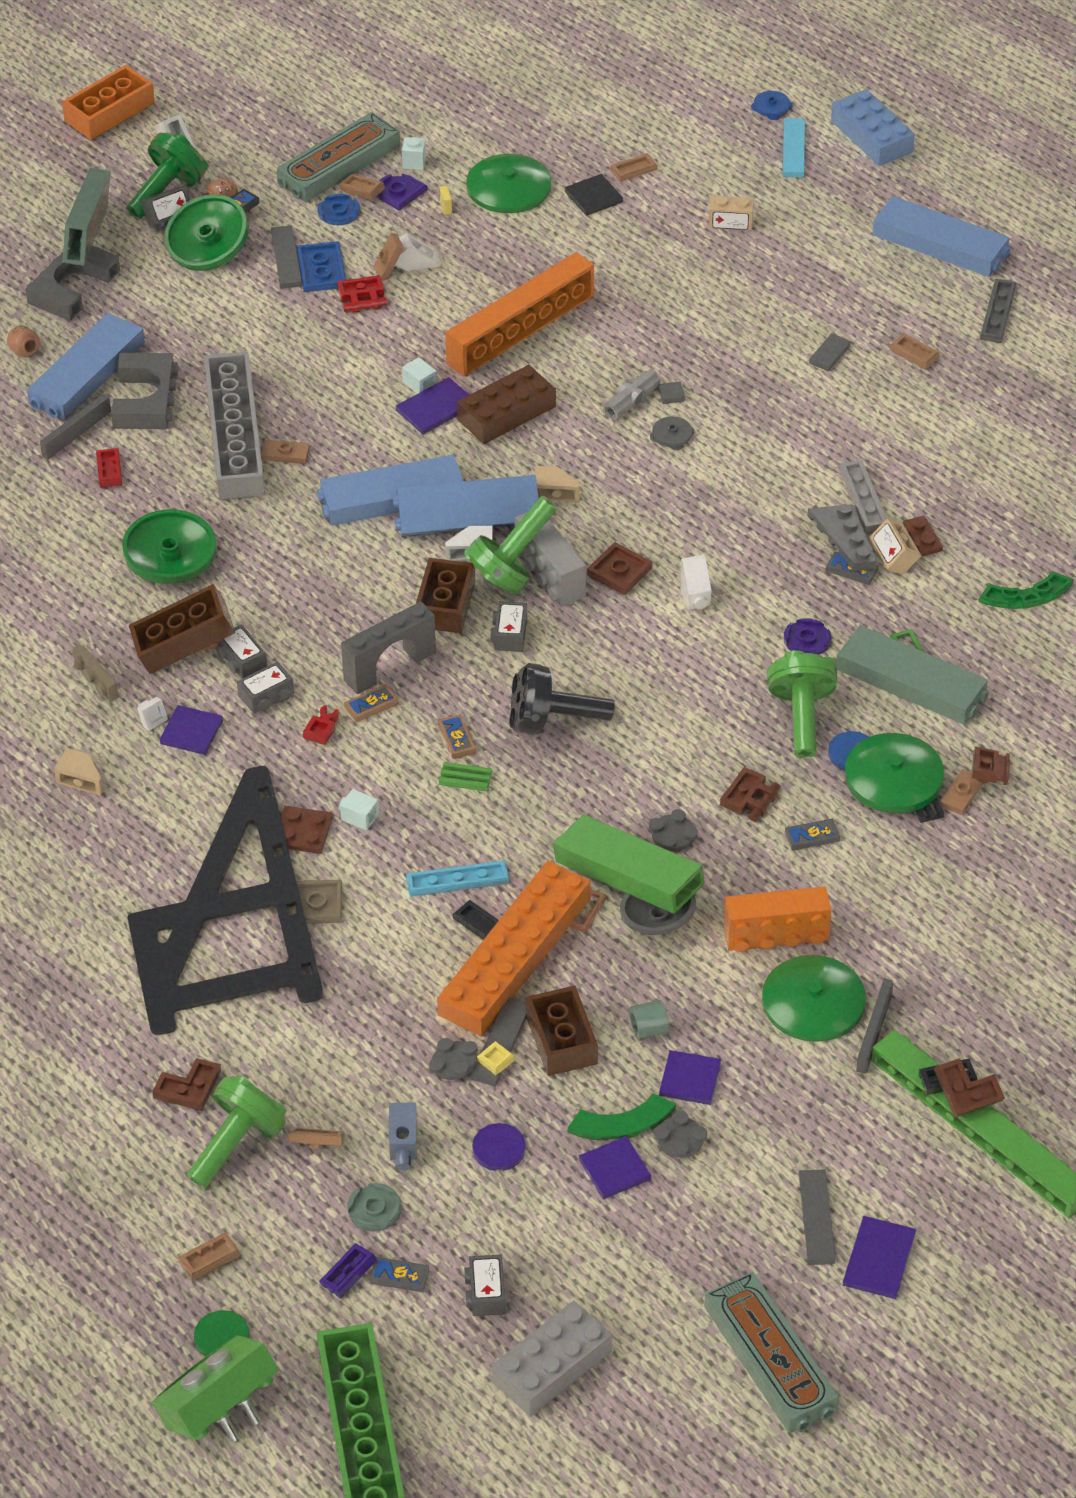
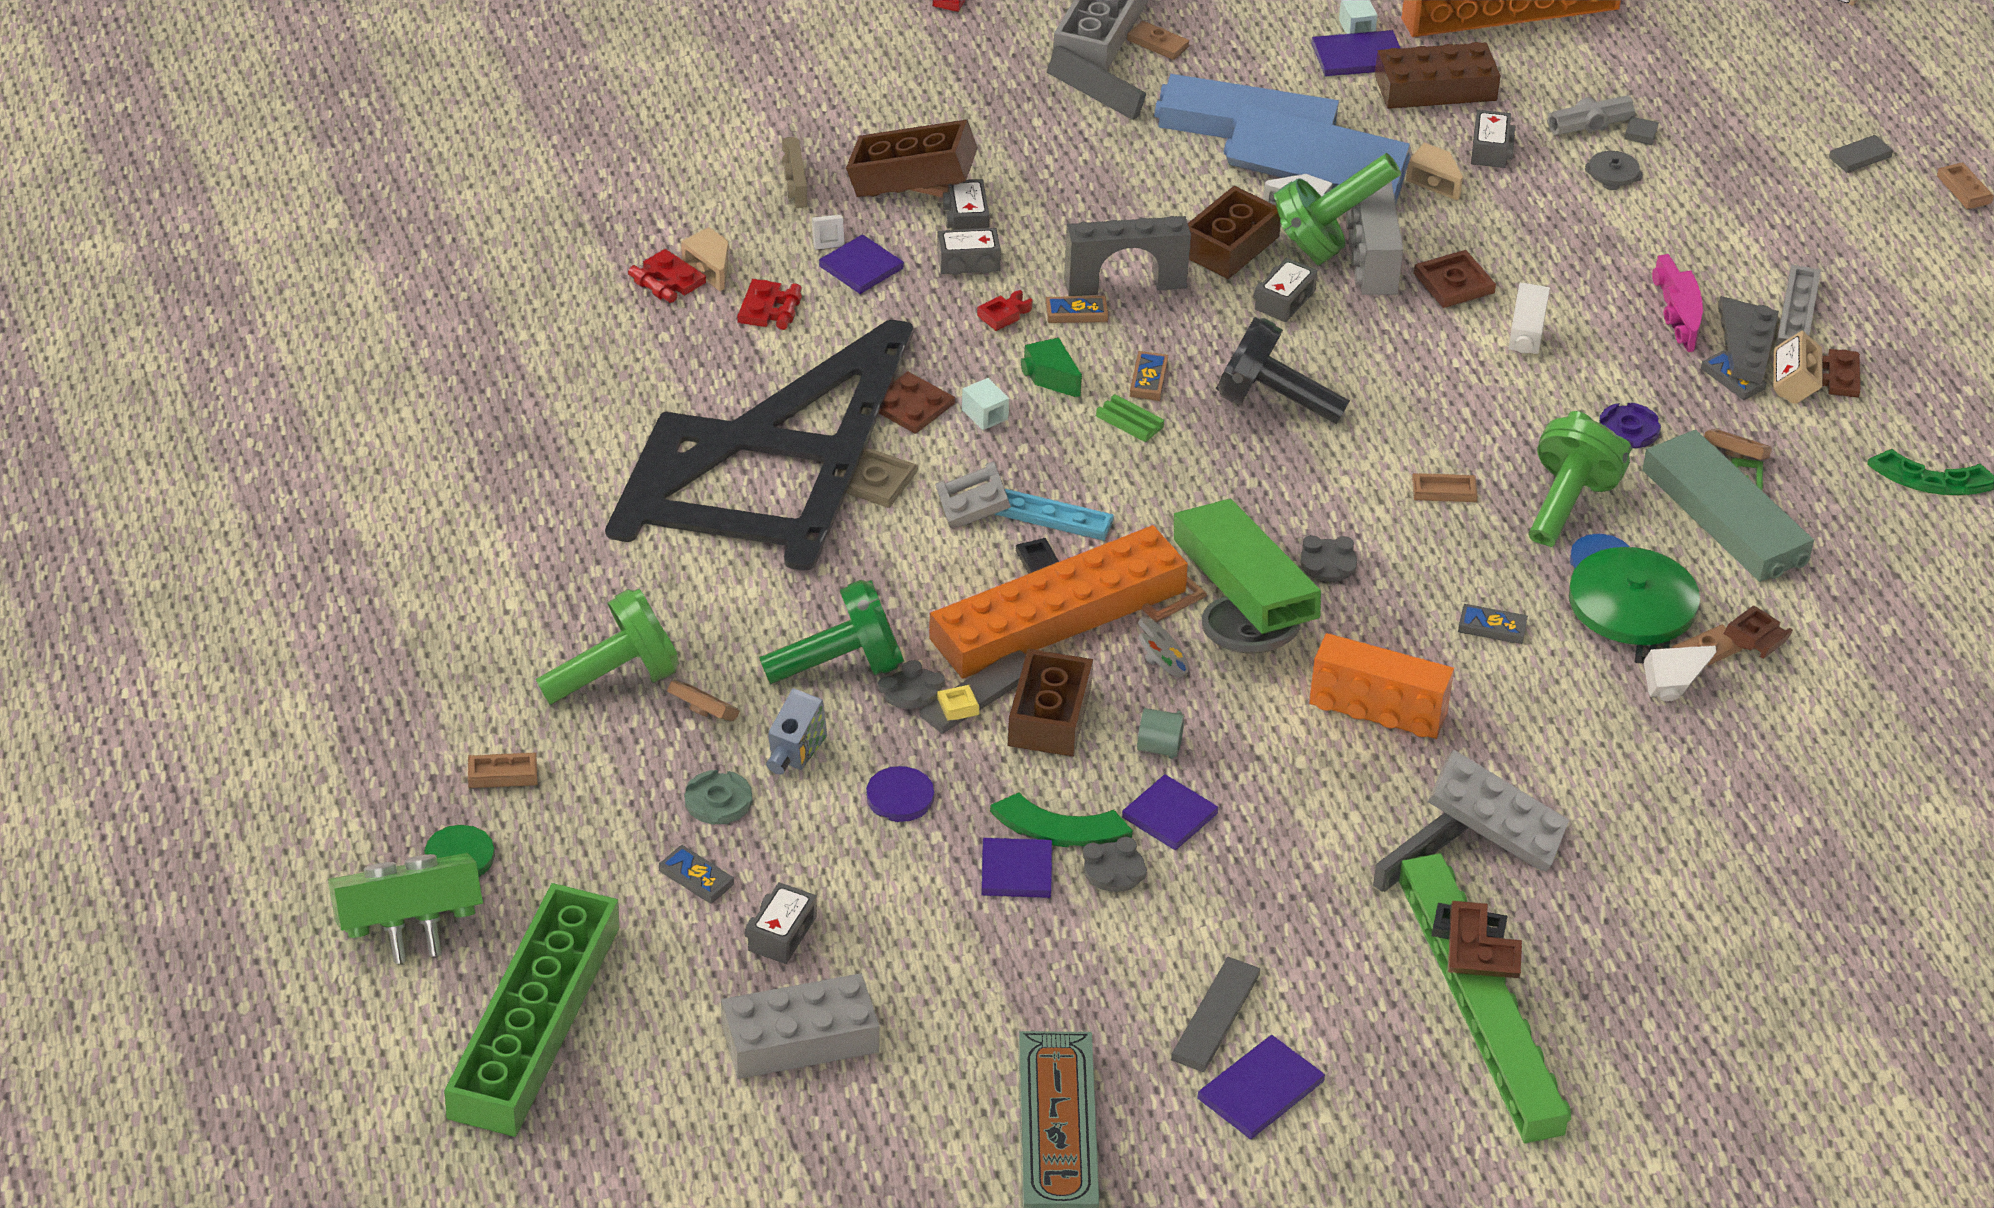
camera: 25 degrees right, 5 degrees down
(56, 793) = (673, 276): none -> red plate
(139, 795) = (760, 304): none -> red plate
(169, 546) = (961, 81): green dish -> none
(188, 1091) = (592, 598): copper plate -> none
(266, 507) = (1096, 82): none -> dark grey tile
(351, 1272) = (641, 845): dark purple tile -> none
(388, 759) = (1052, 367): none -> green slope
(403, 1029) = (866, 629): none -> green piece
(404, 893) = (976, 502): none -> light grey plate
(576, 442) = (1492, 139): none -> dark grey brick
(607, 953) = (1162, 648): none -> light grey piece
(714, 740) = (1444, 487): none -> medium nougat tile
(744, 789) = (1441, 548): copper plate -> none
(790, 526) = (1682, 300): none -> dark pink slope
(813, 998) = (1373, 789): green dish -> none
(889, 624) = (1738, 446): none -> medium nougat plate
(910, 980) = (1498, 811): none -> light grey plate
(957, 820) = (1674, 669): none -> white slope

